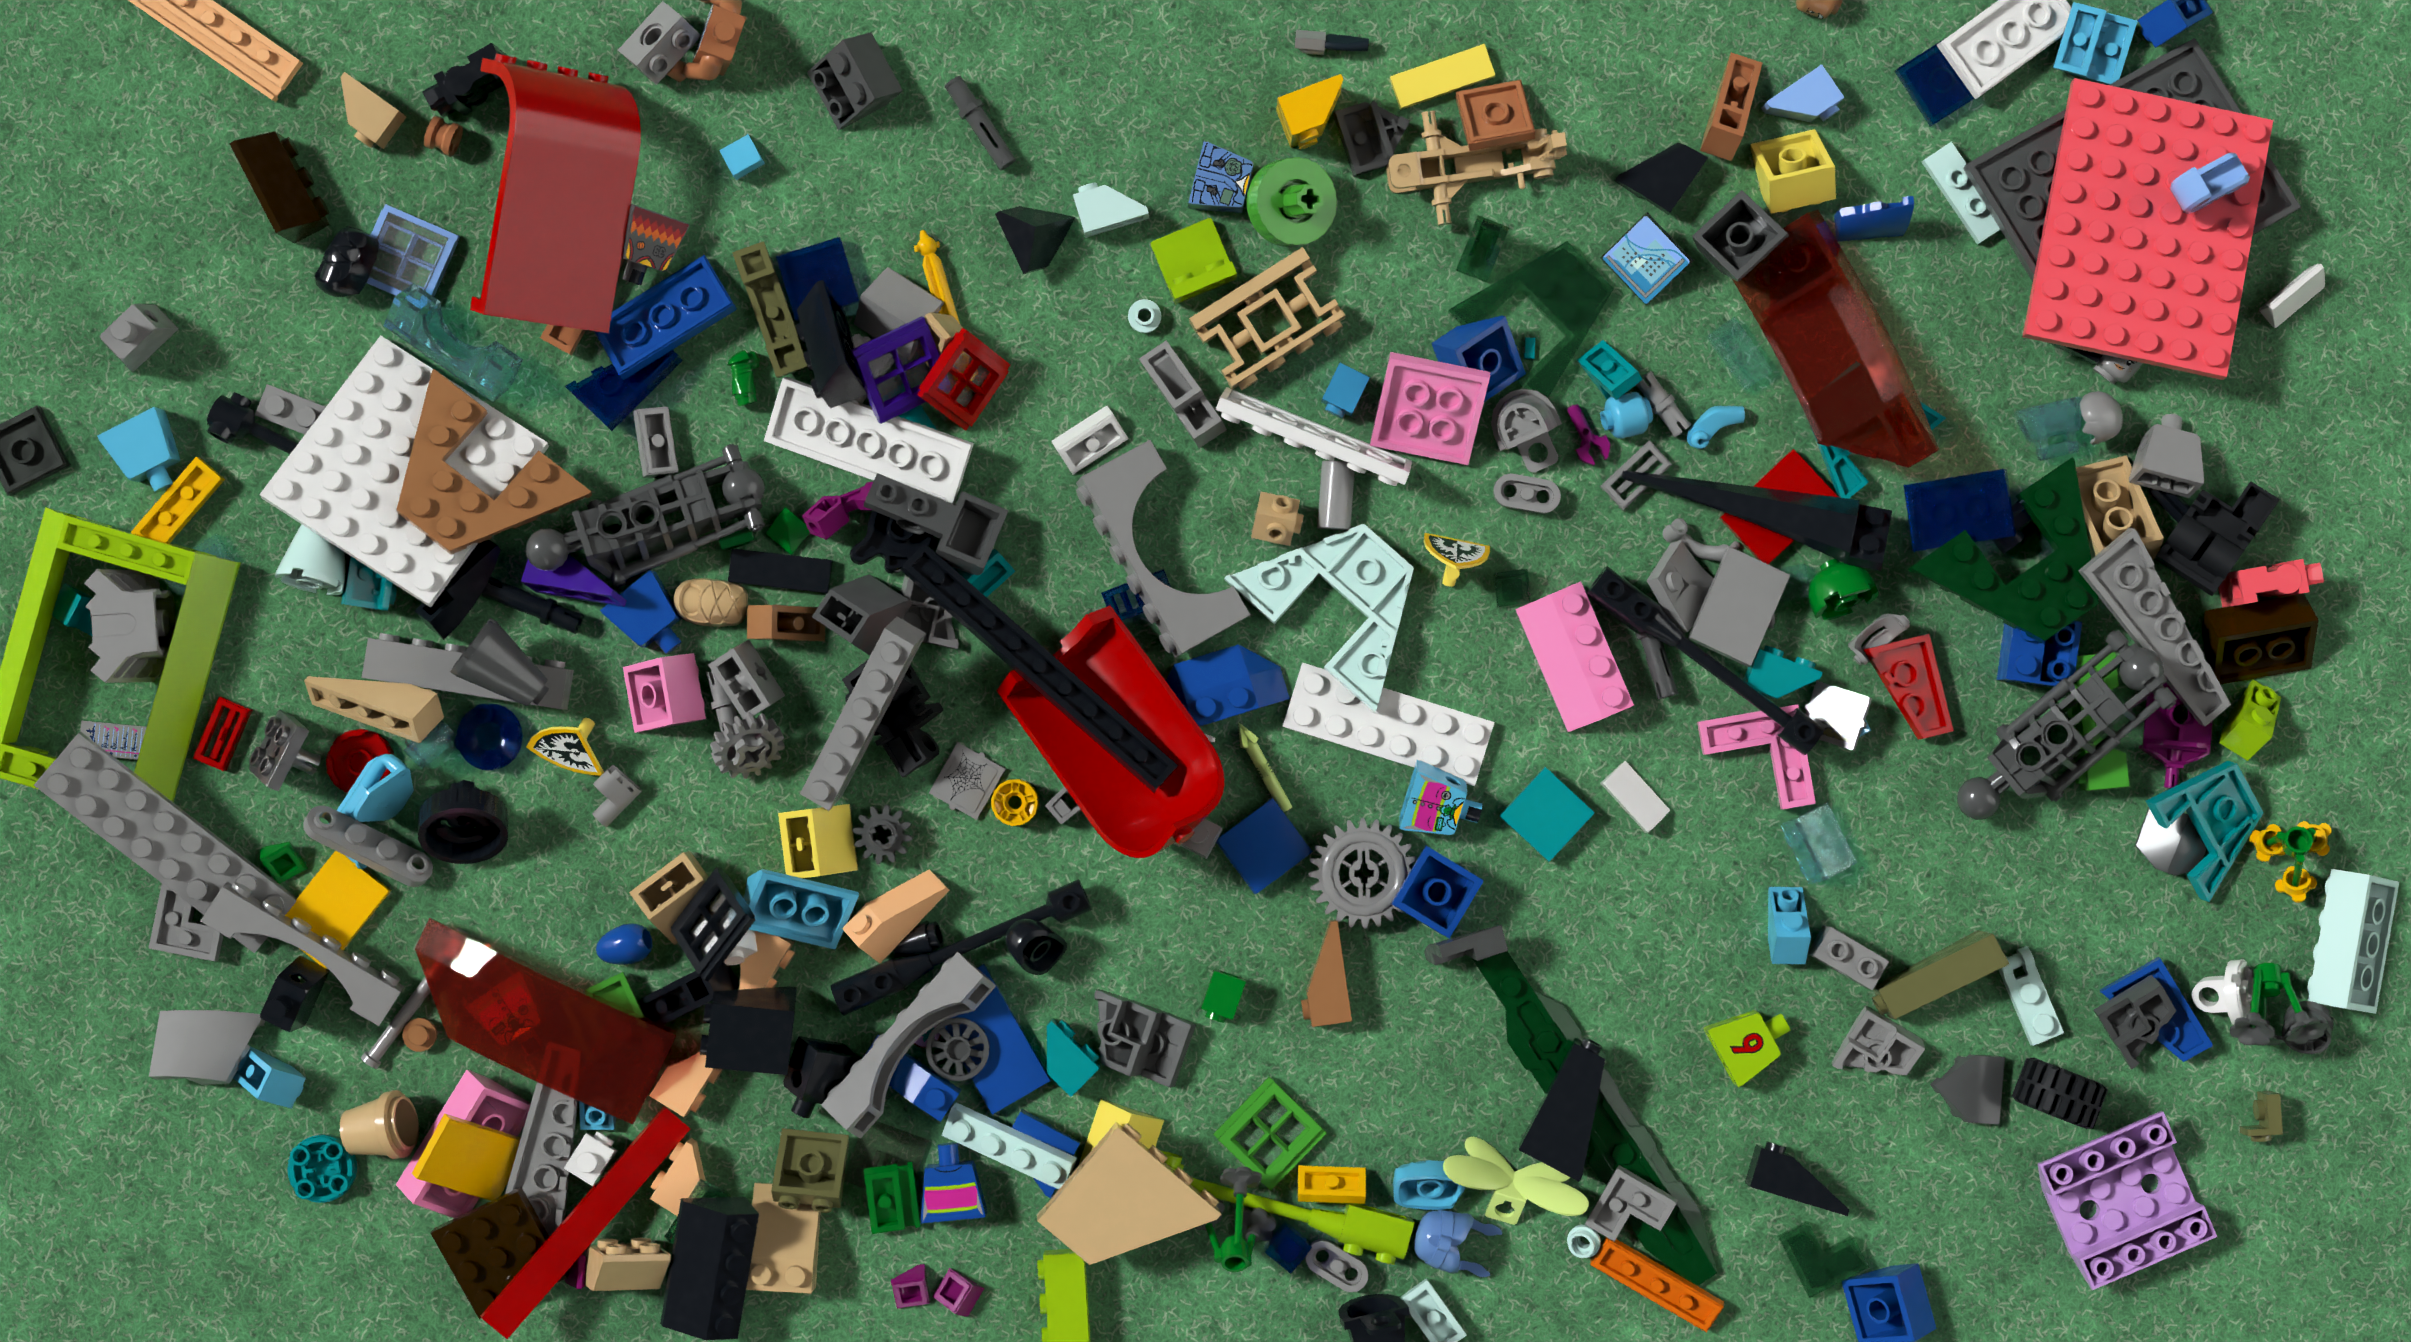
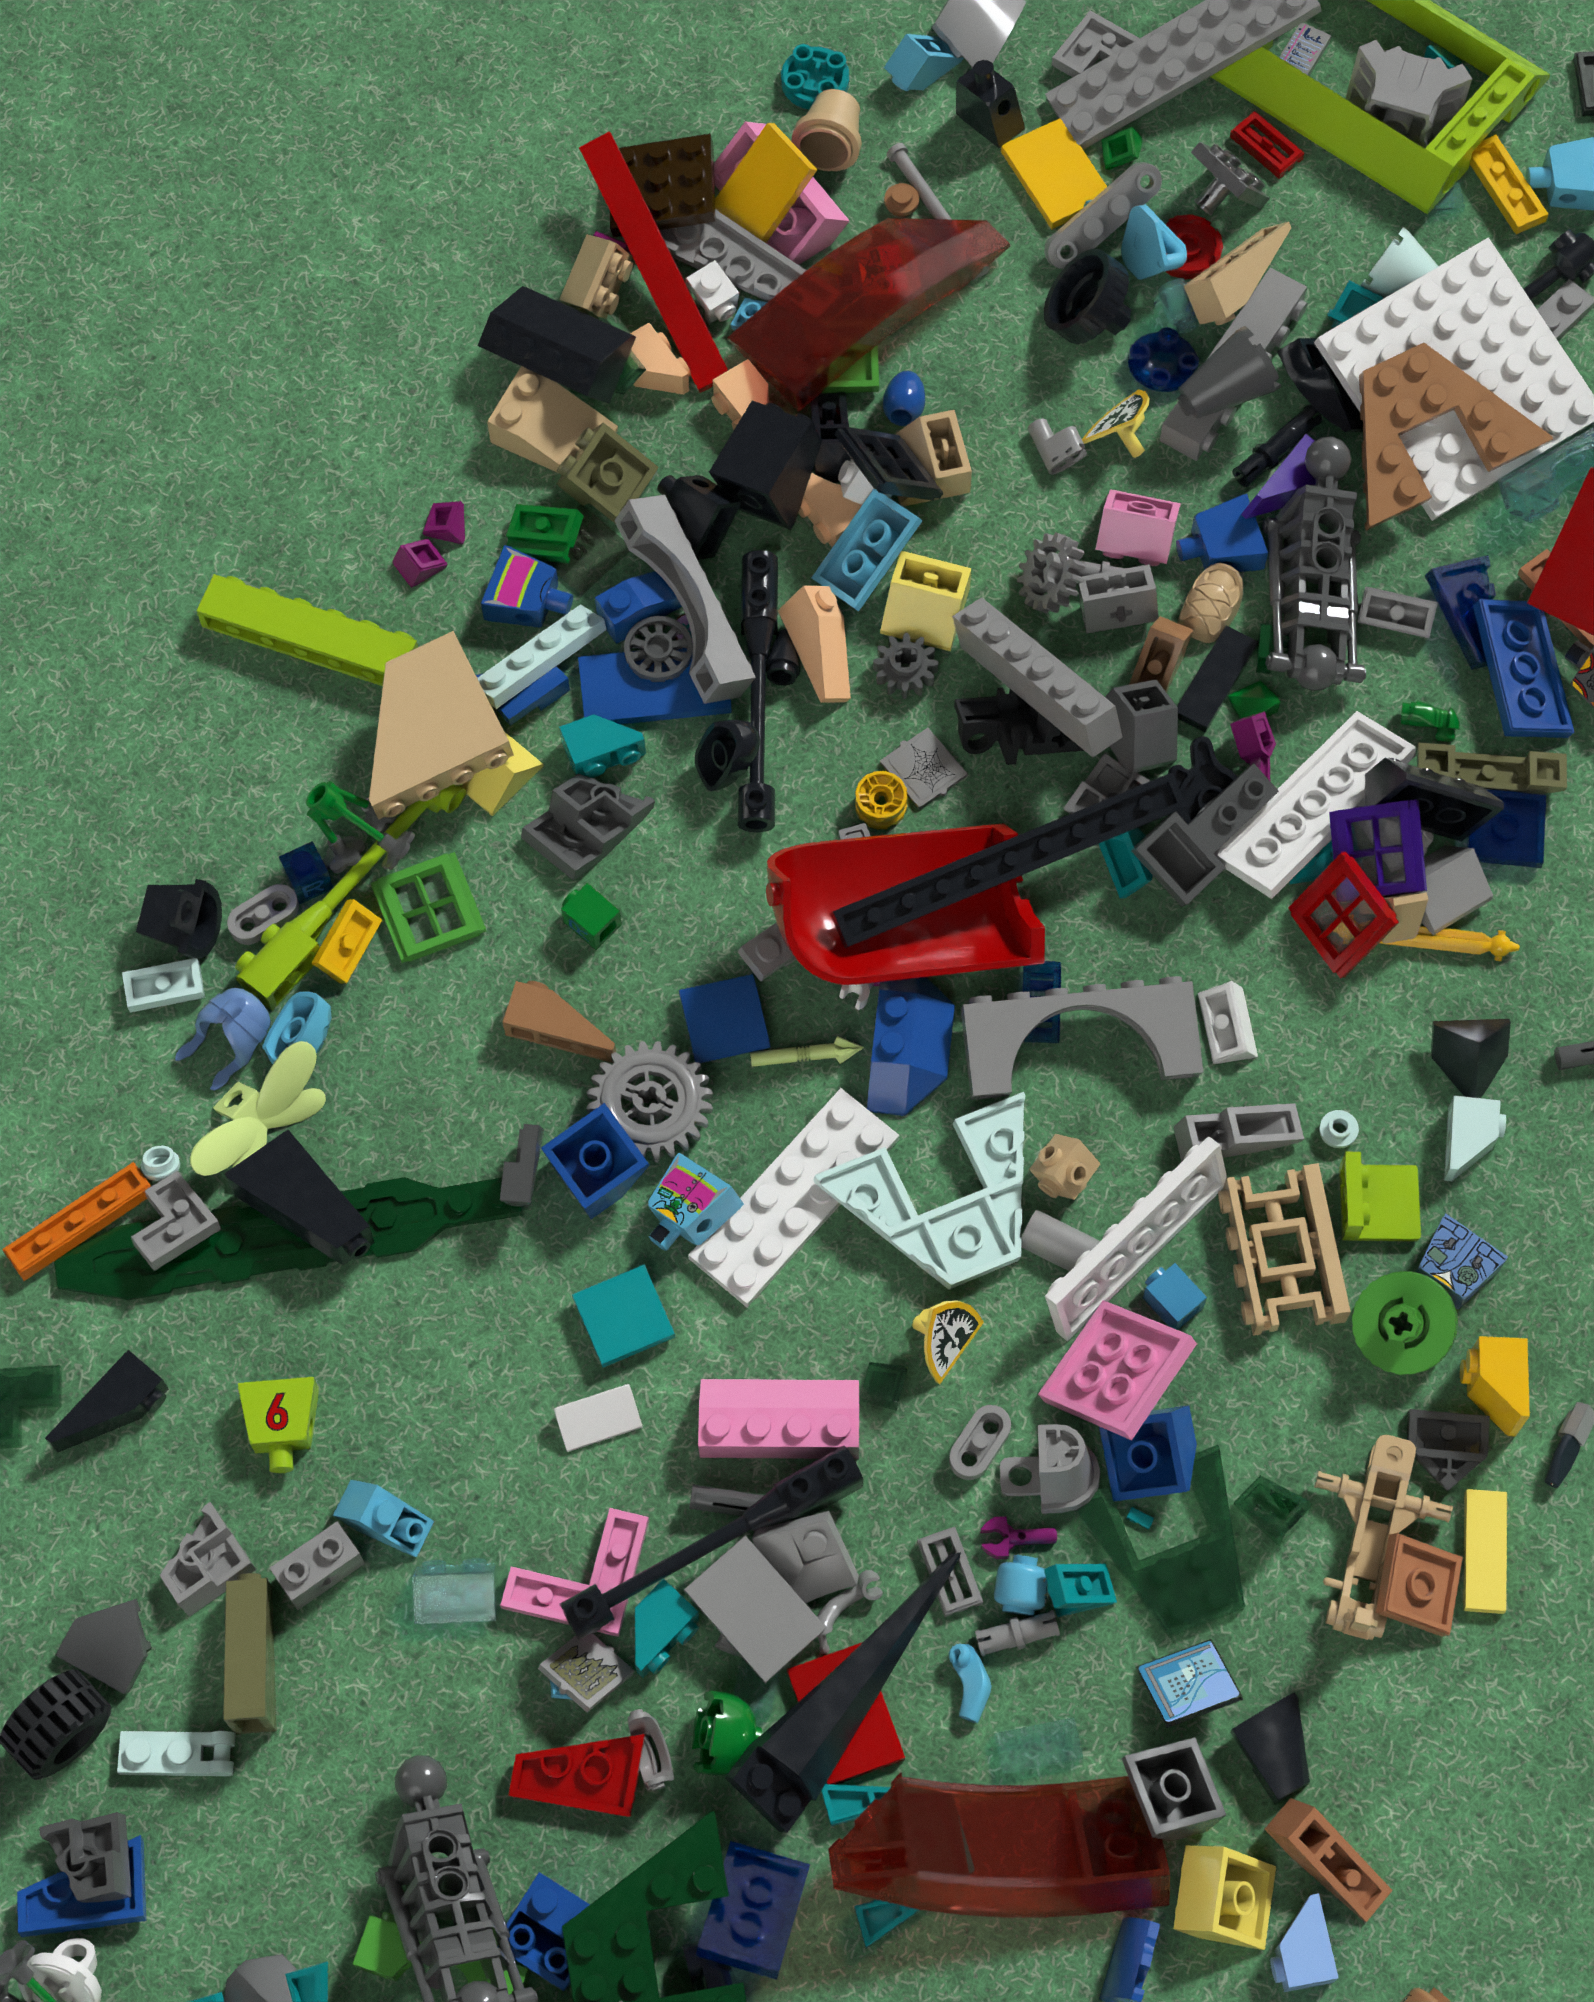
camera: 115 degrees right, 20 degrees down
(368, 988) = (968, 168): light grey arch -> none

